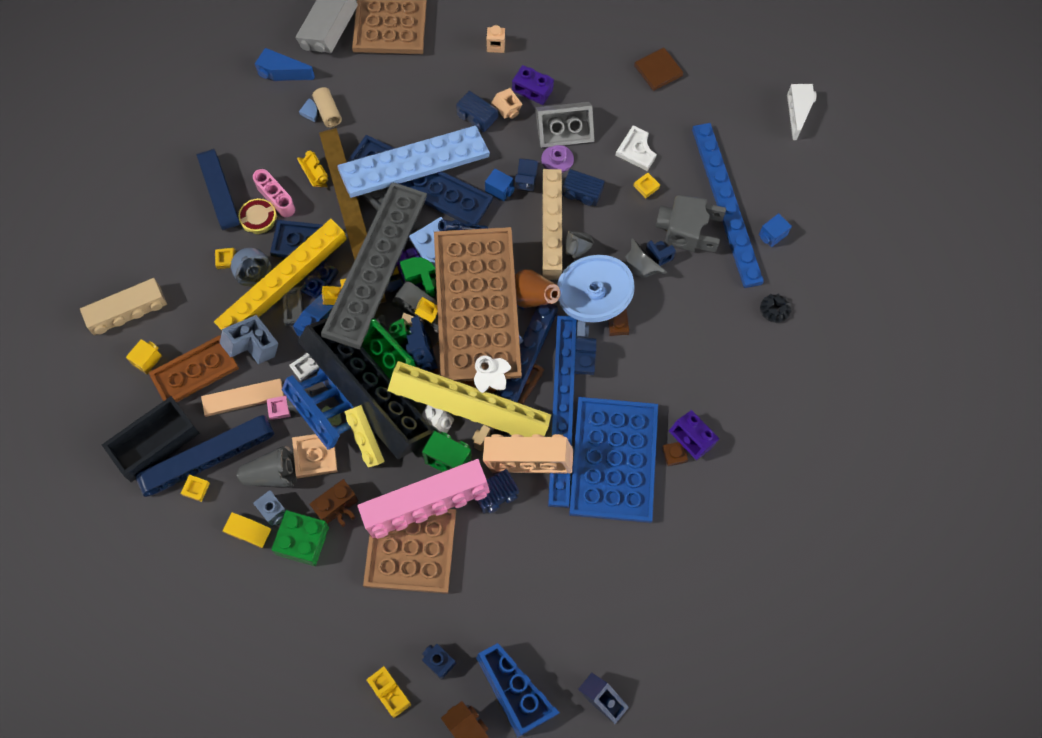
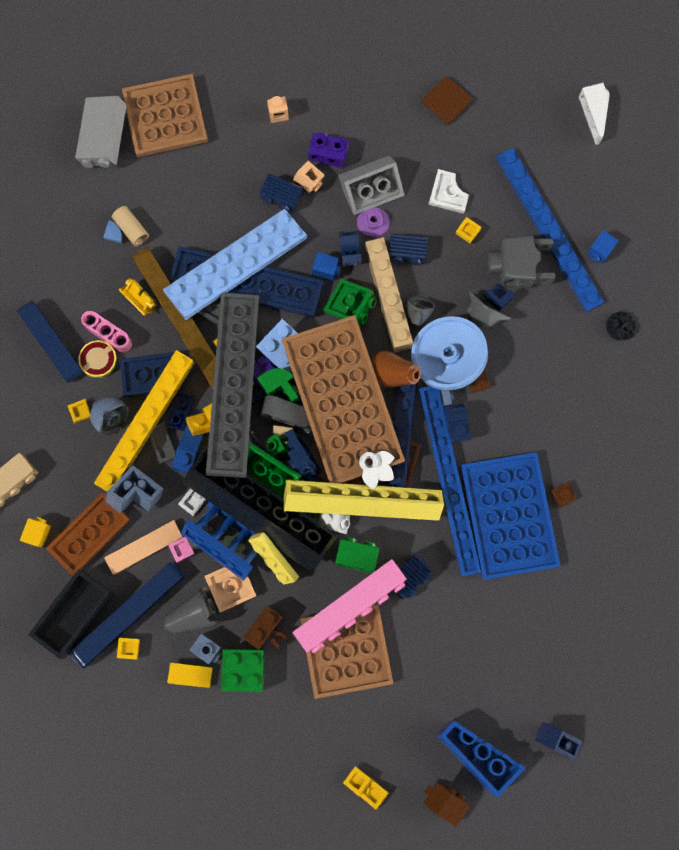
camera: 15 degrees left, 10 degrees up
(282, 68) = (69, 194): blue slope -> none
(426, 309) = (297, 420): yellow plate -> none
(444, 666) = (411, 748): dark blue brick -> none
(446, 225) = (302, 325): dark blue pin -> none
(479, 437) = (381, 528): tan plate -> none
(518, 218) = (350, 300): none -> green plate
(528, 454) = (433, 536): light nougat brick -> none
(694, 434) = (578, 474): dark purple brick -> none

